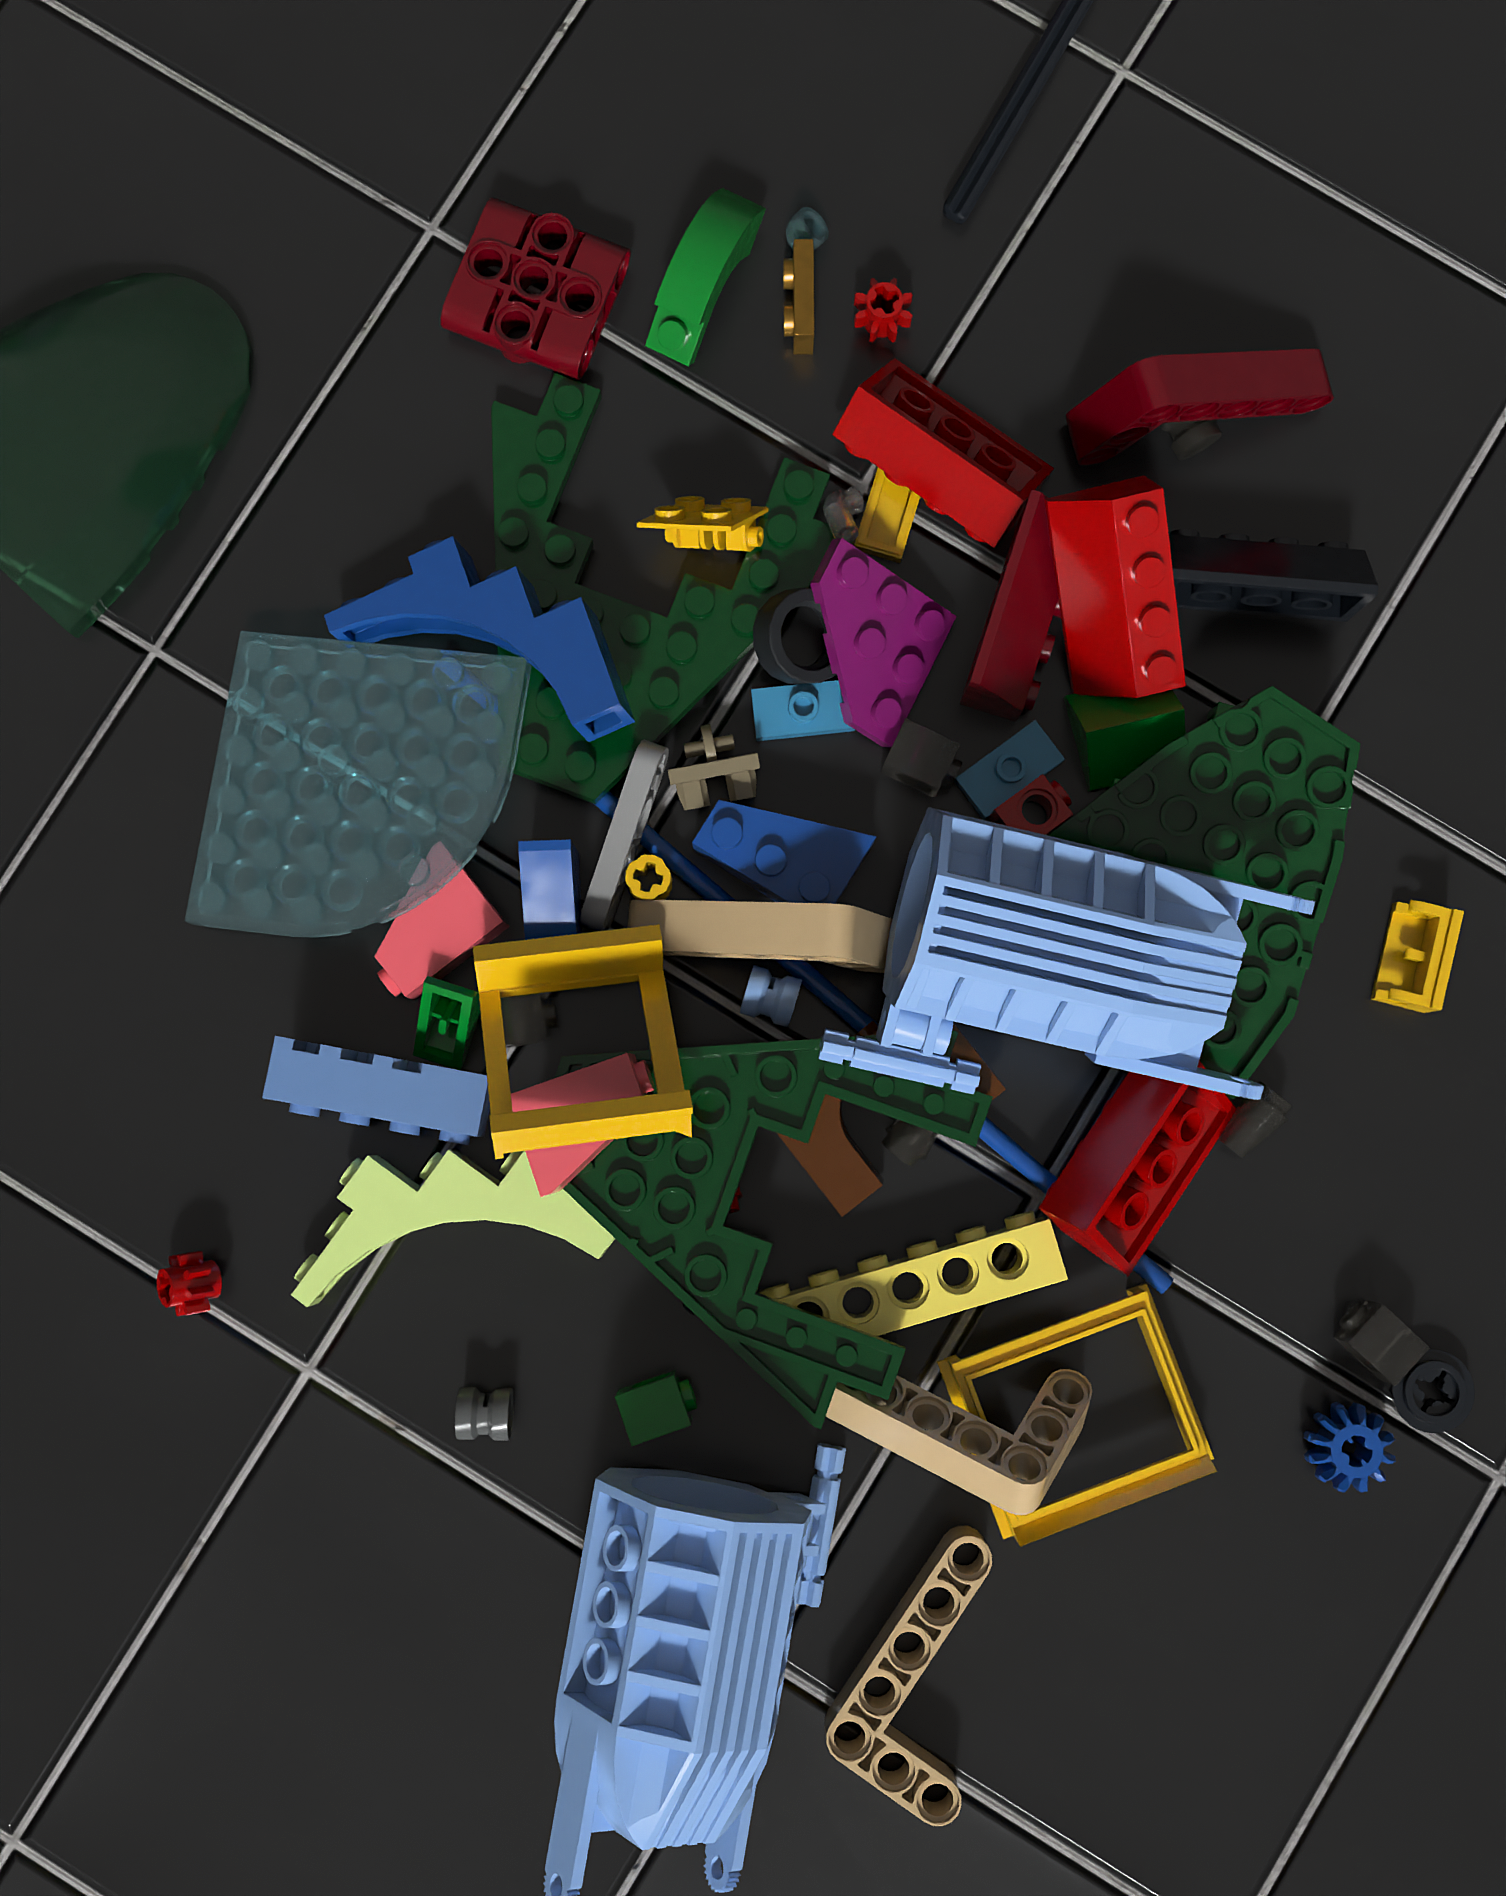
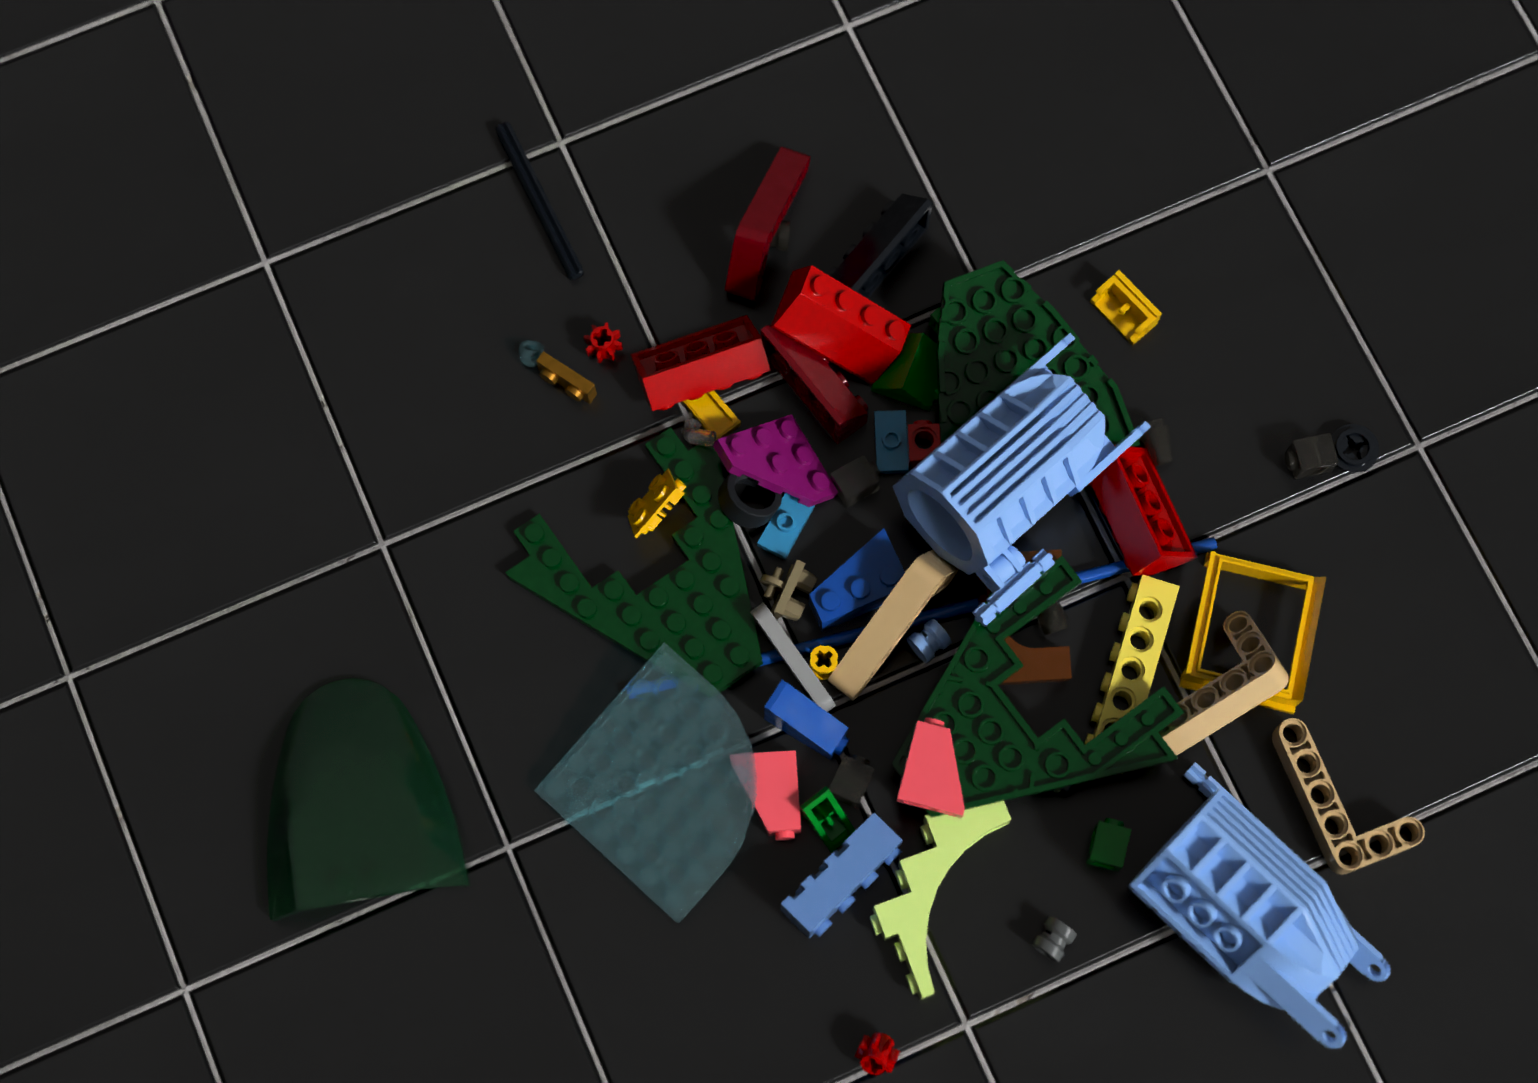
camera: 55 degrees left, 10 degrees down
(494, 305) = (477, 477): dark red connector -> none
(501, 610) = (630, 638): blue arch -> none
(577, 963) = (848, 720): yellow piece -> none
(703, 261) = (519, 419): green arch -> none
(1349, 1467) = (1362, 518): blue gear -> none

